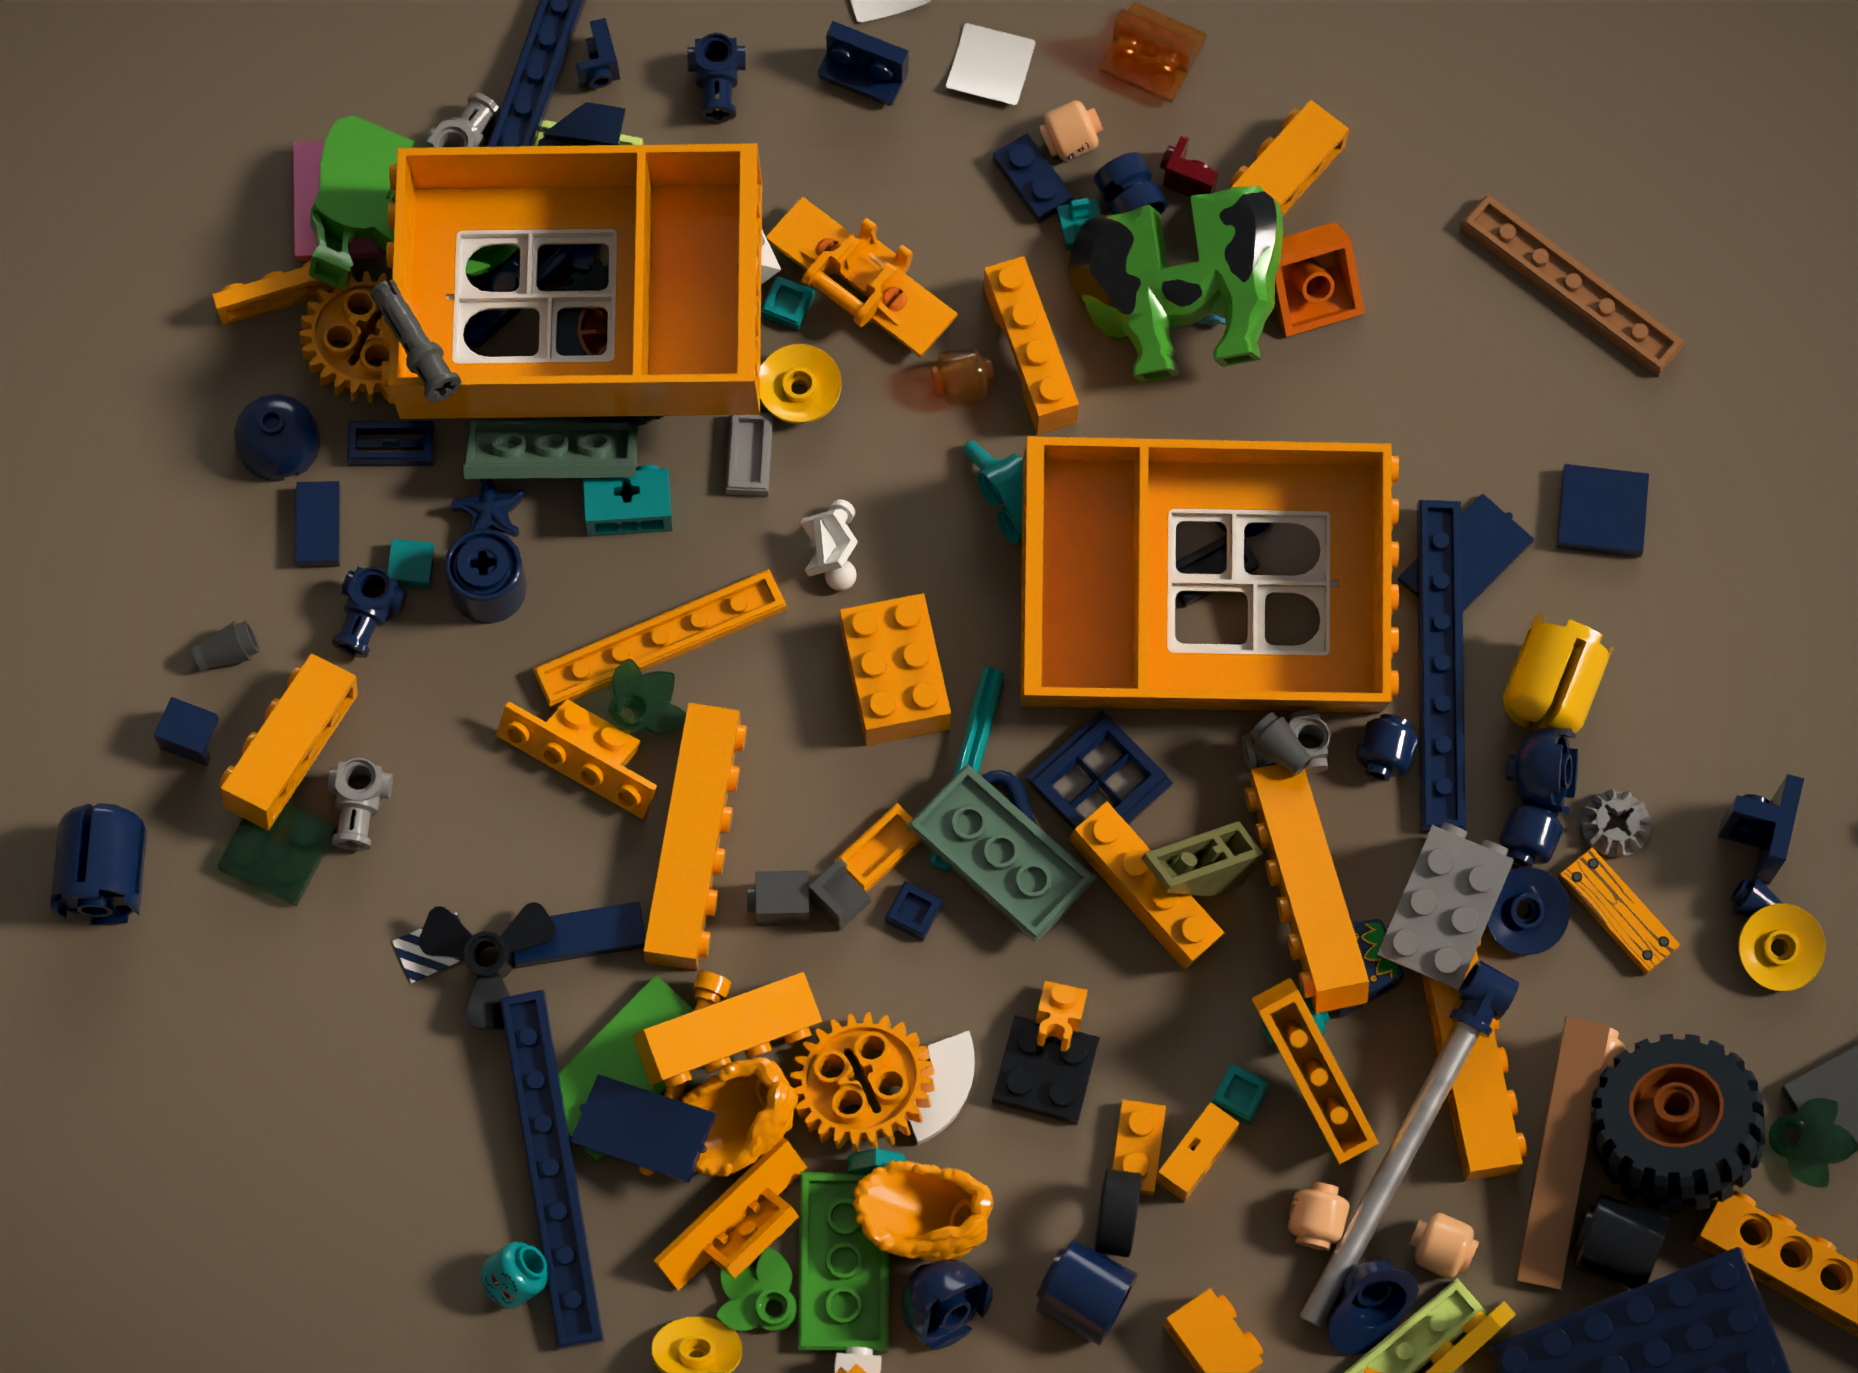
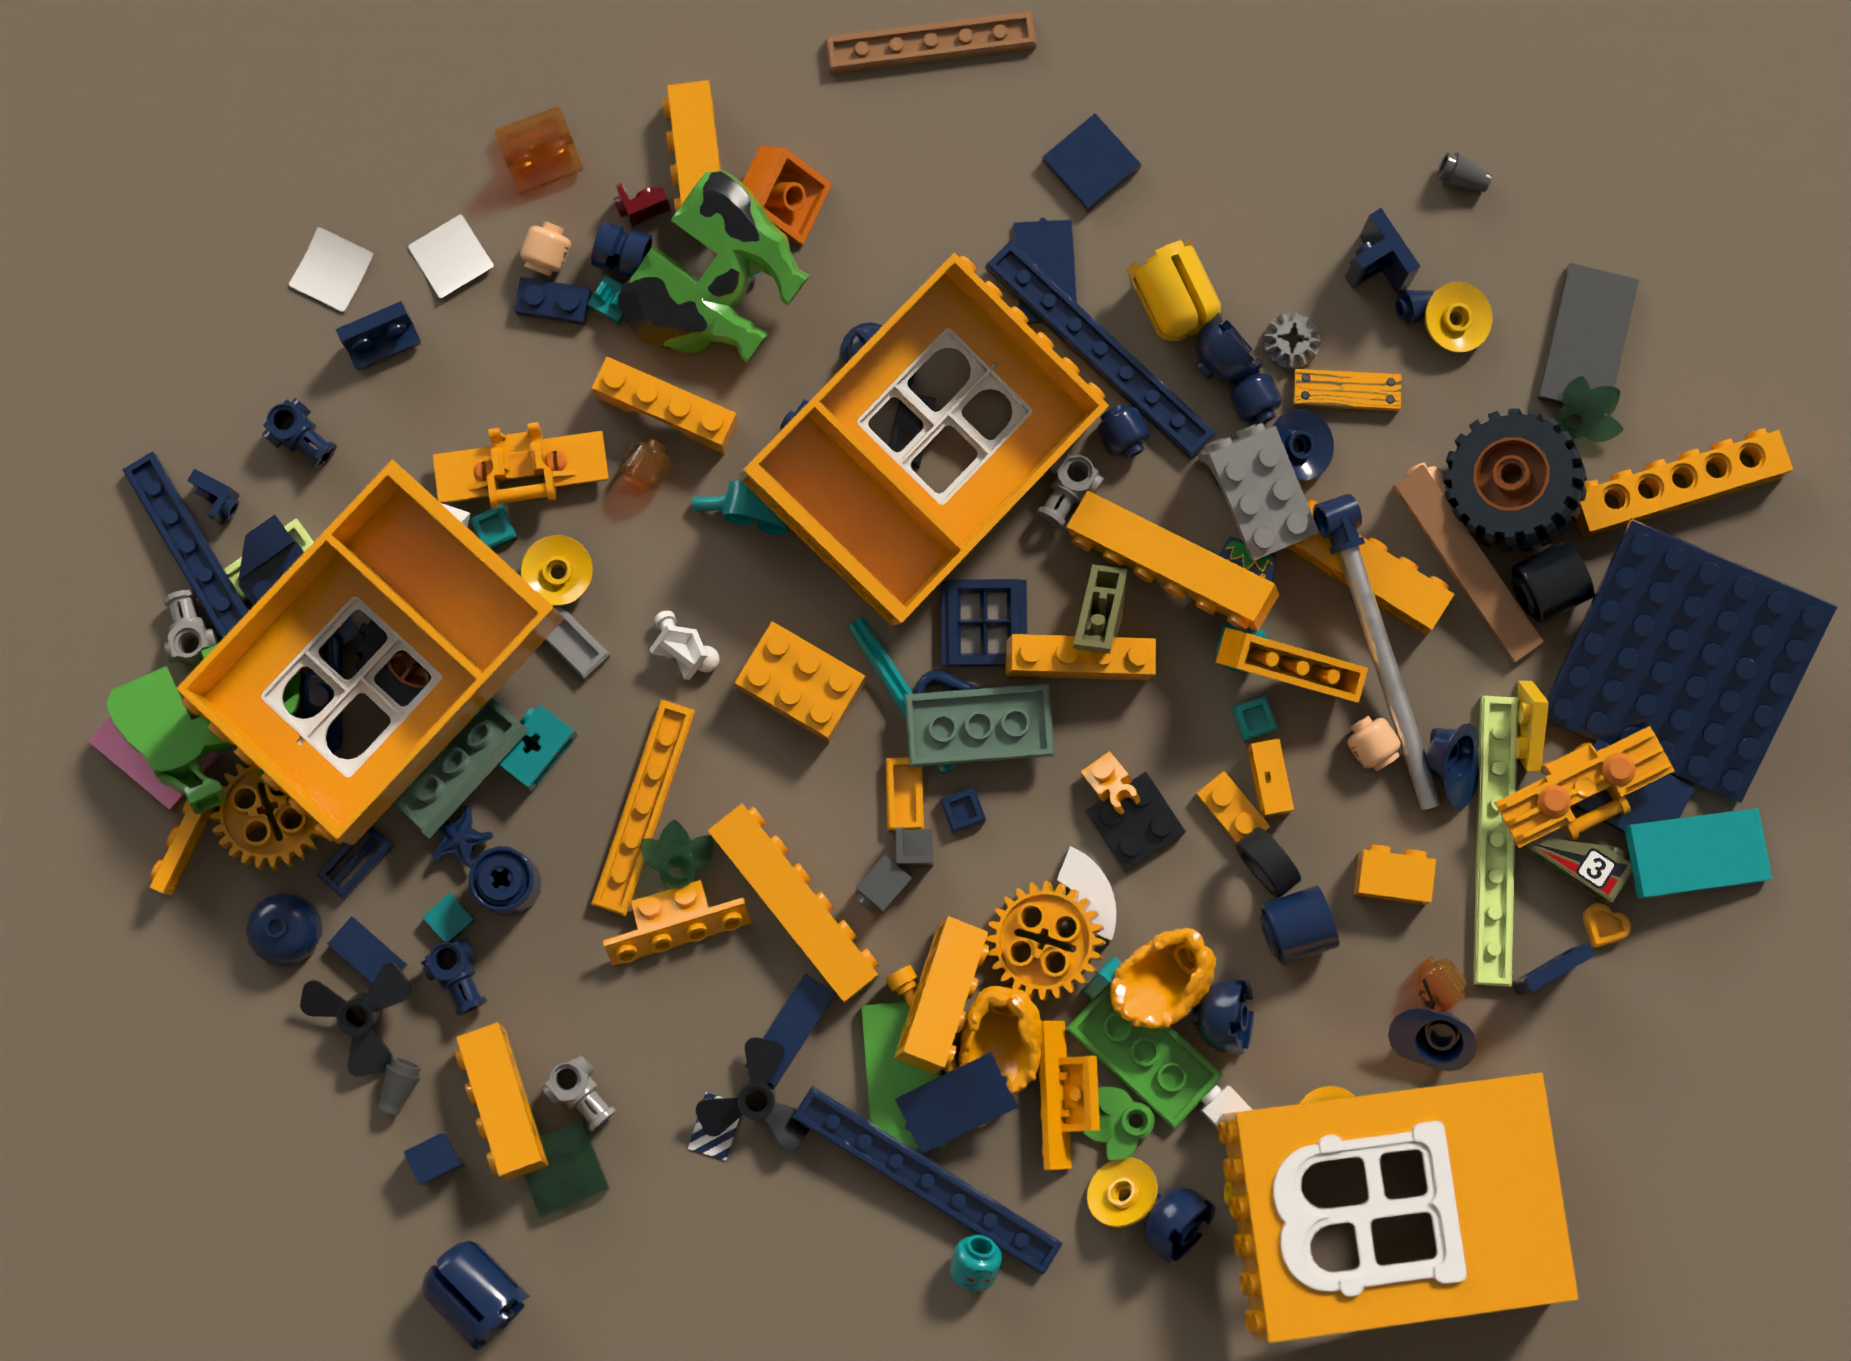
camera: 45 degrees left, 10 degrees up
(235, 594) = (367, 1049): none -> black piece
(423, 355) = (339, 800): dark grey pin -> none
(1279, 743) = (1069, 495): dark grey cone -> none
(1444, 1245) = (1458, 685): light nougat head -> none

